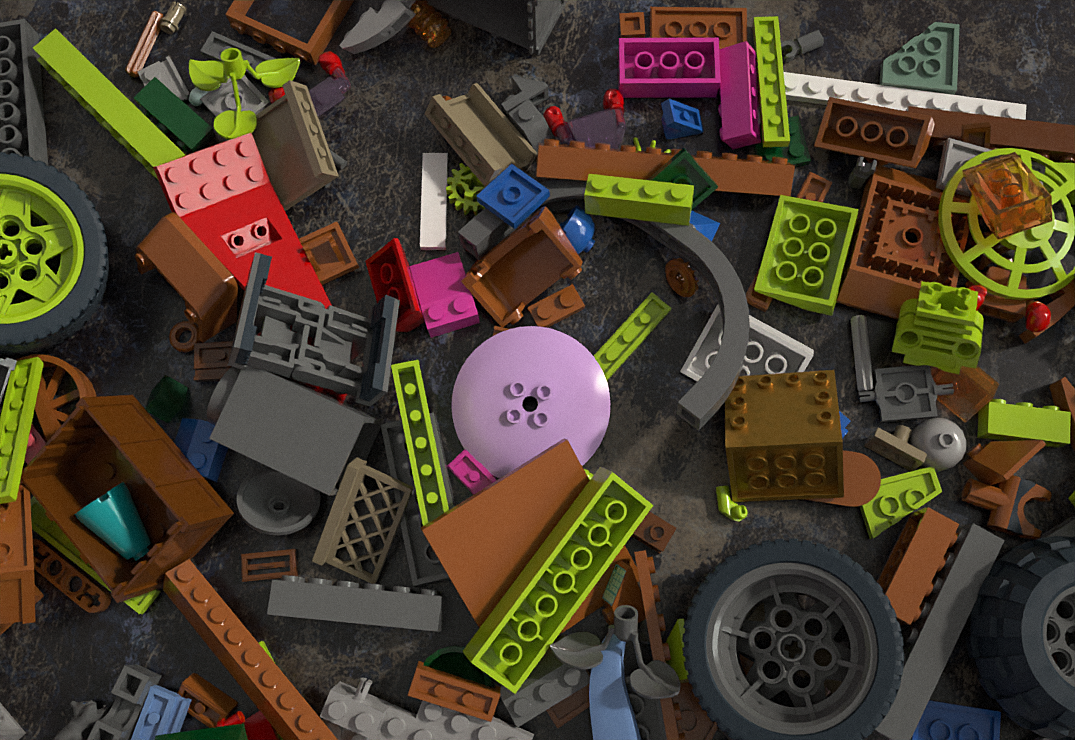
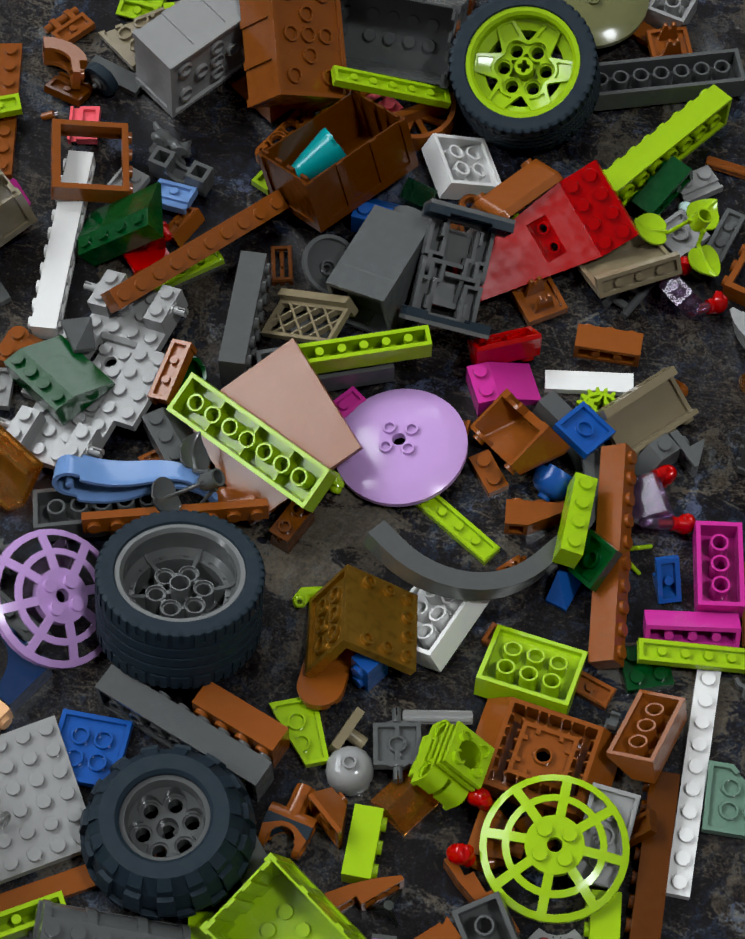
camera: 90 degrees right, 15 degrees down
(128, 349) = (460, 165): none -> white slope
(385, 178) = (608, 345): none -> dark orange brick
(614, 259) = (527, 517): none -> dark orange slope
(1009, 195) = (570, 817): clear orange slope -> none

